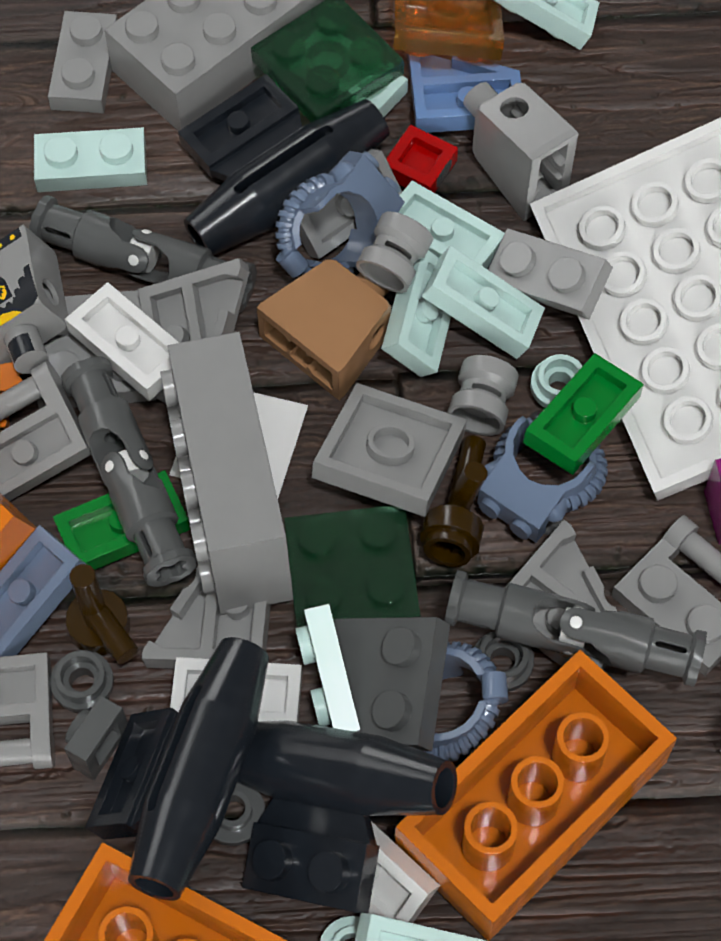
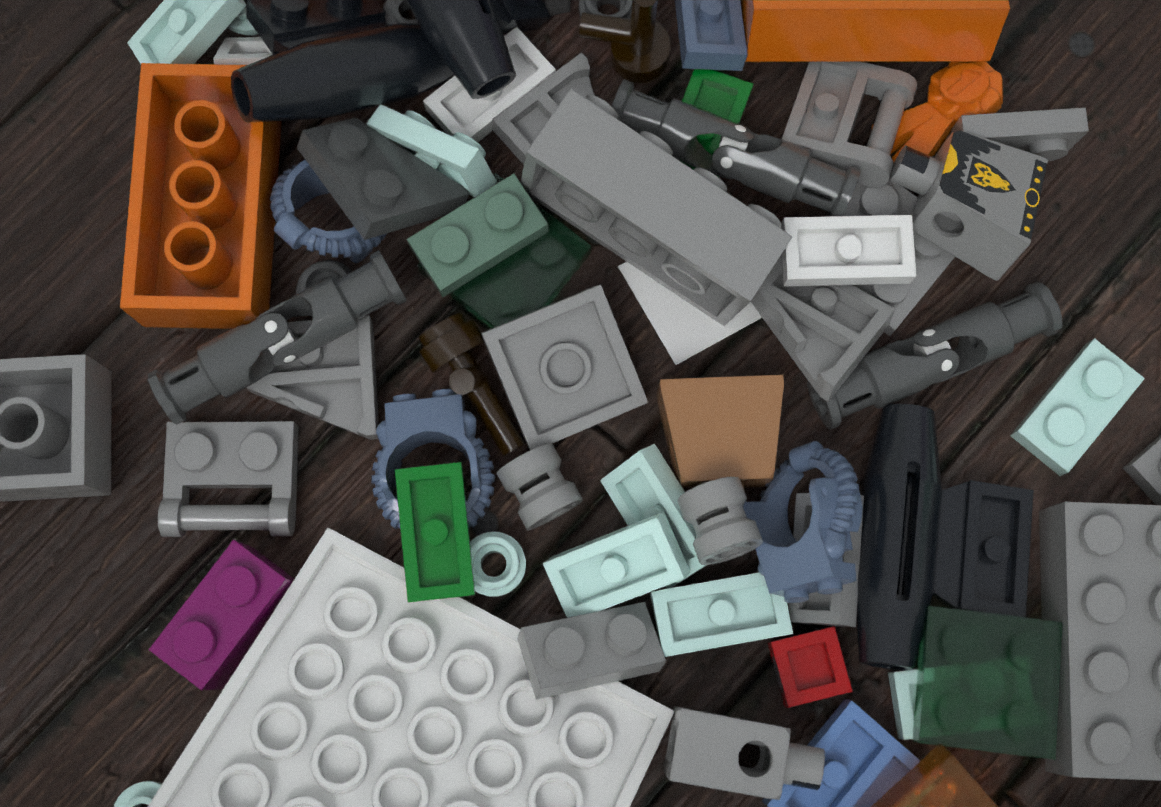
camera: 135 degrees right, 15 degrees up
(359, 579) = (478, 235): none -> sand green plate

